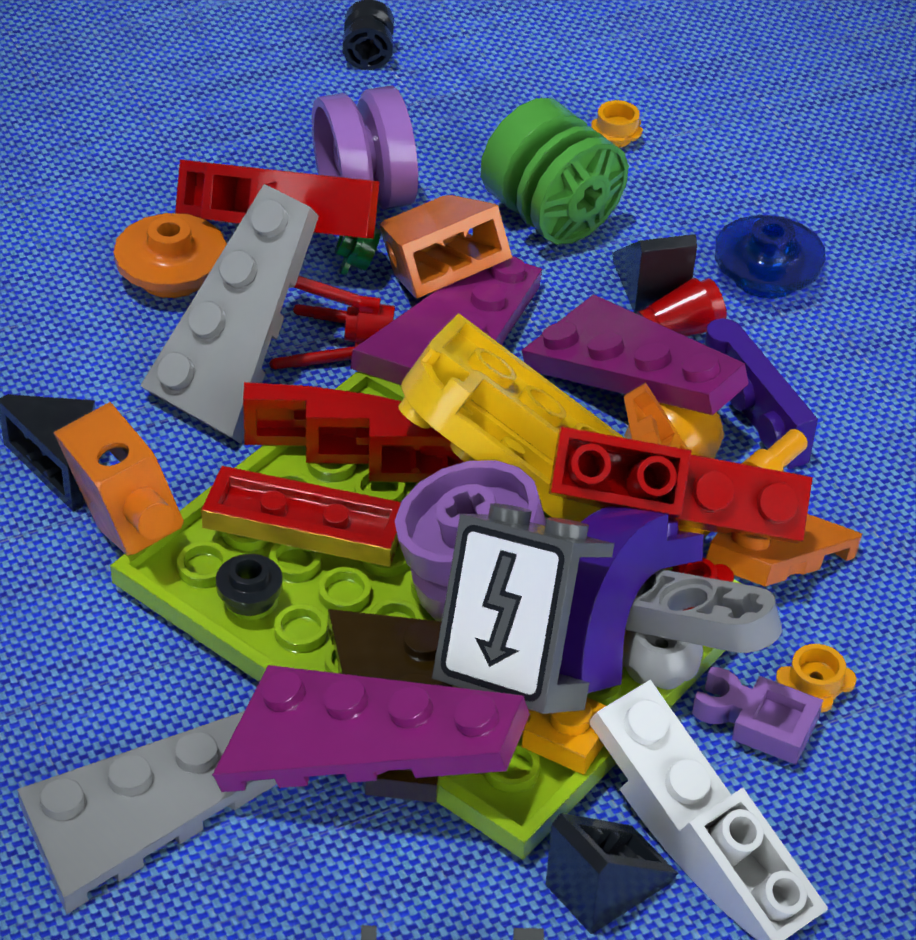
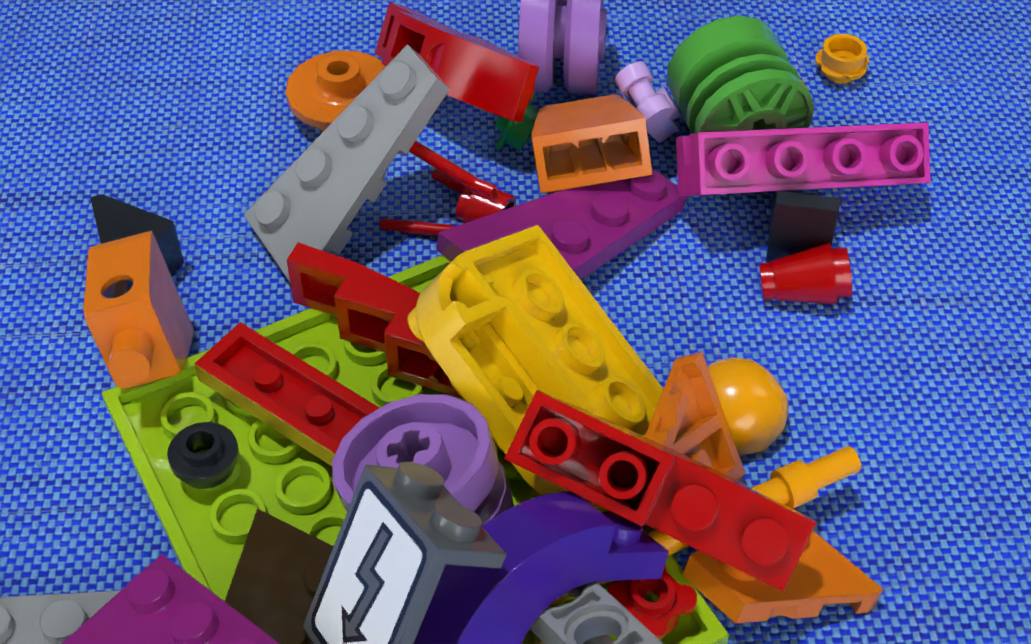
camera: 25 degrees right, 5 degrees up
(467, 183) = (656, 106): none -> lavender plate
(622, 350) = (721, 308): magenta wing -> none
(636, 213) = (802, 159): none -> dark pink brick
(768, 397) = (843, 384): dark purple plate -> none
(769, 255) = (932, 236): clear blue piece -> none

